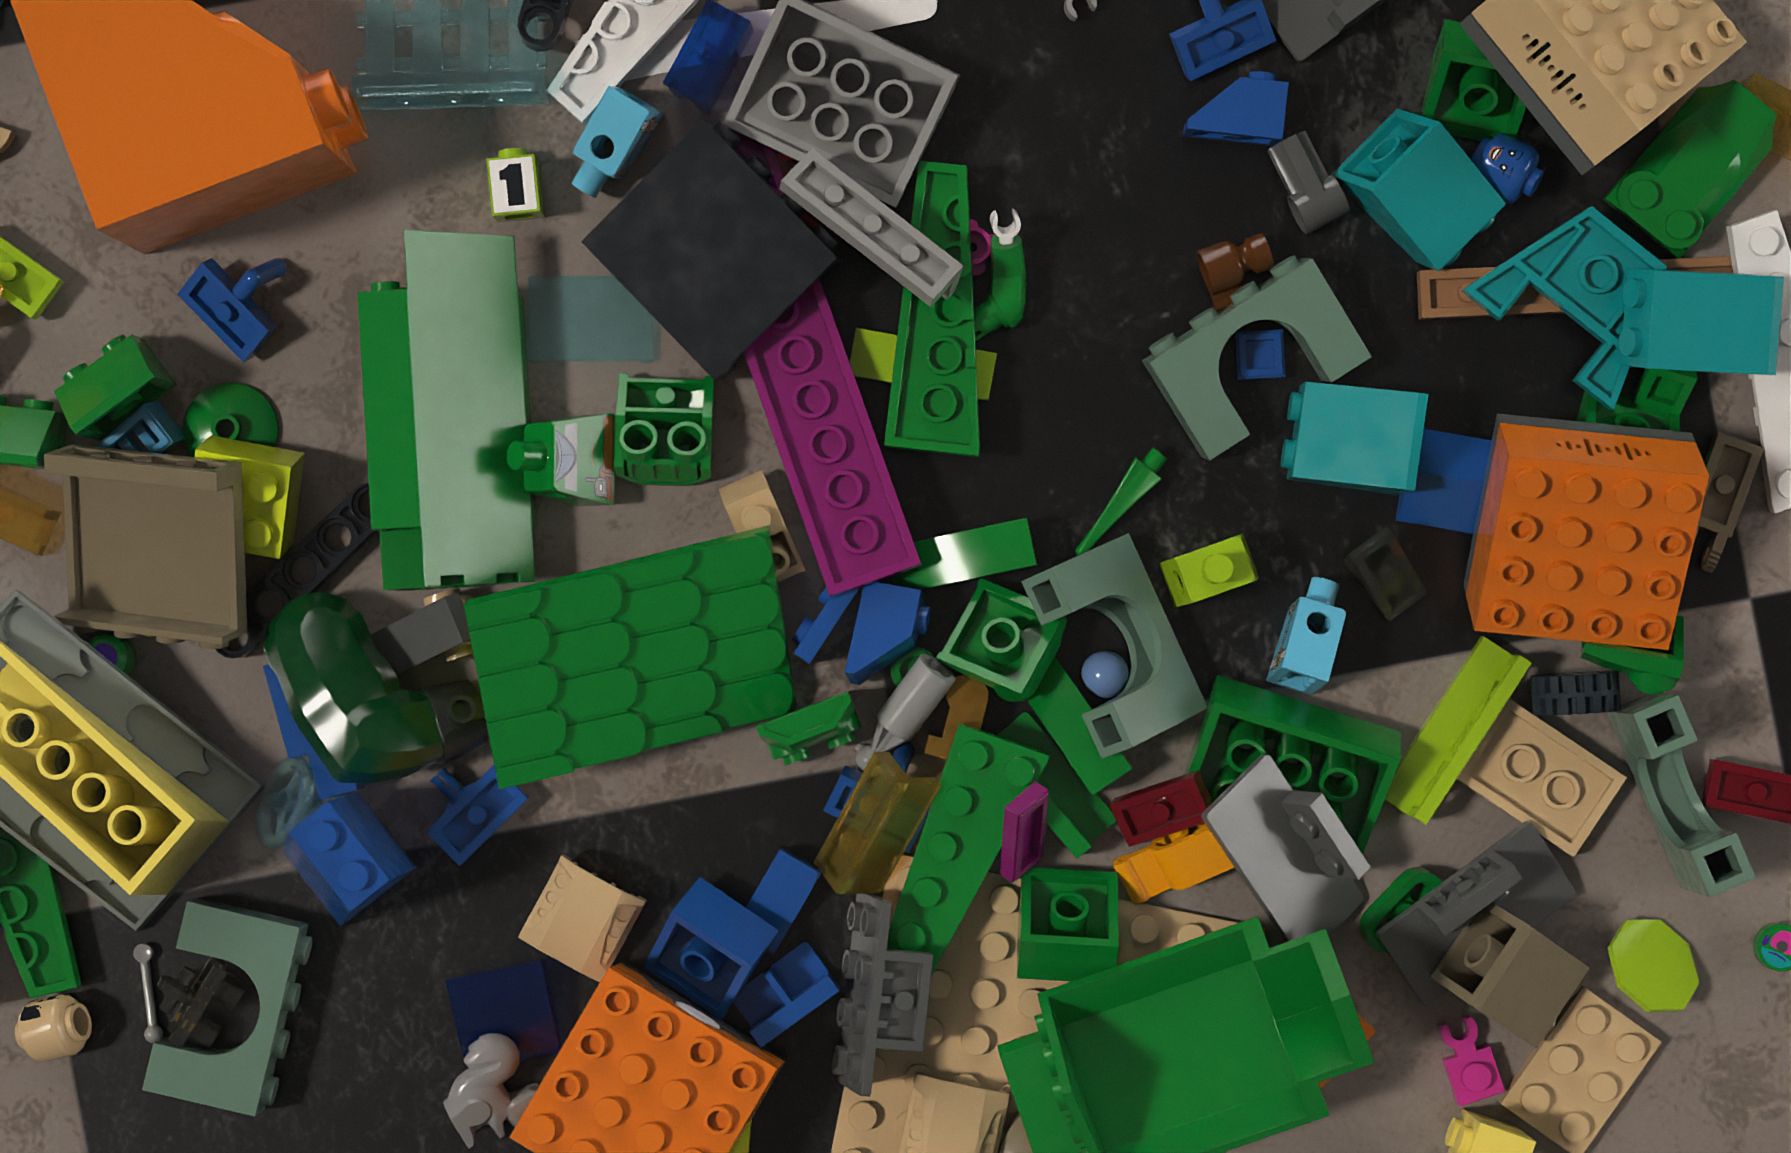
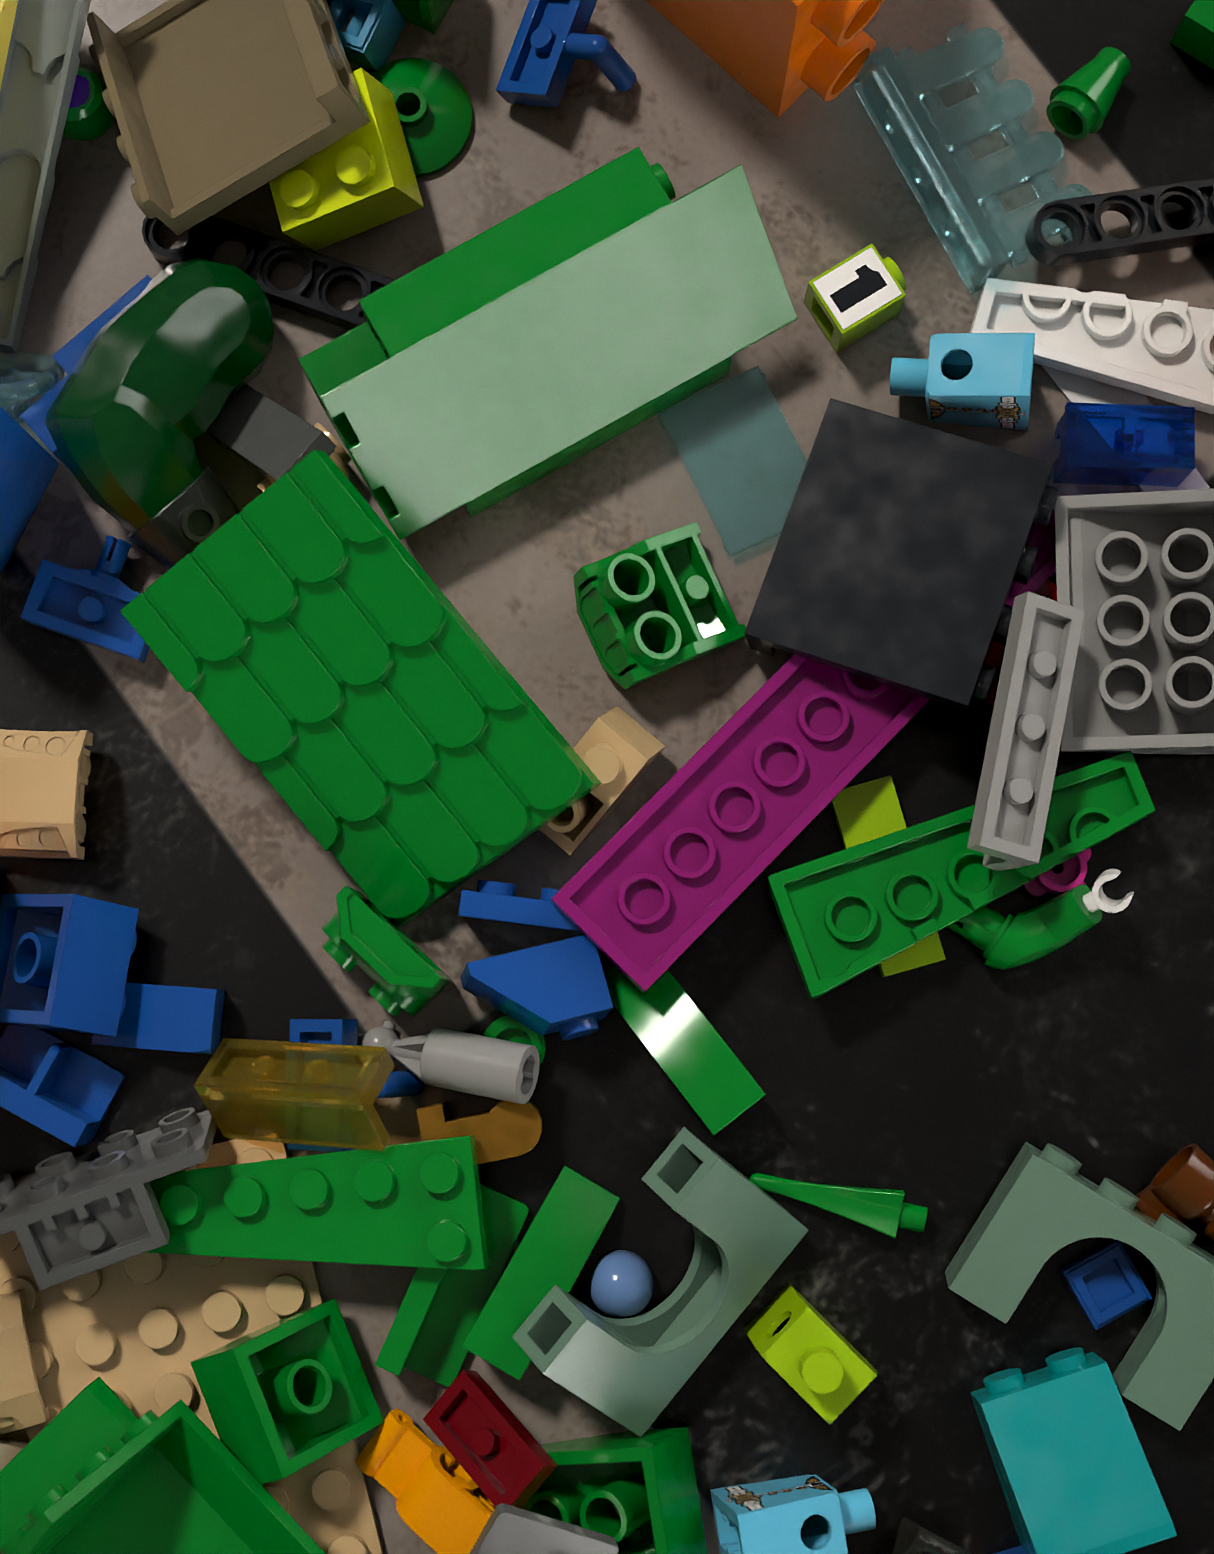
camera: 70 degrees right, 5 degrees down
(568, 459) = (563, 508): green torso -> none
(1003, 642) = (598, 1139): green slope -> none
(1023, 831) = (376, 1282): magenta tile -> none

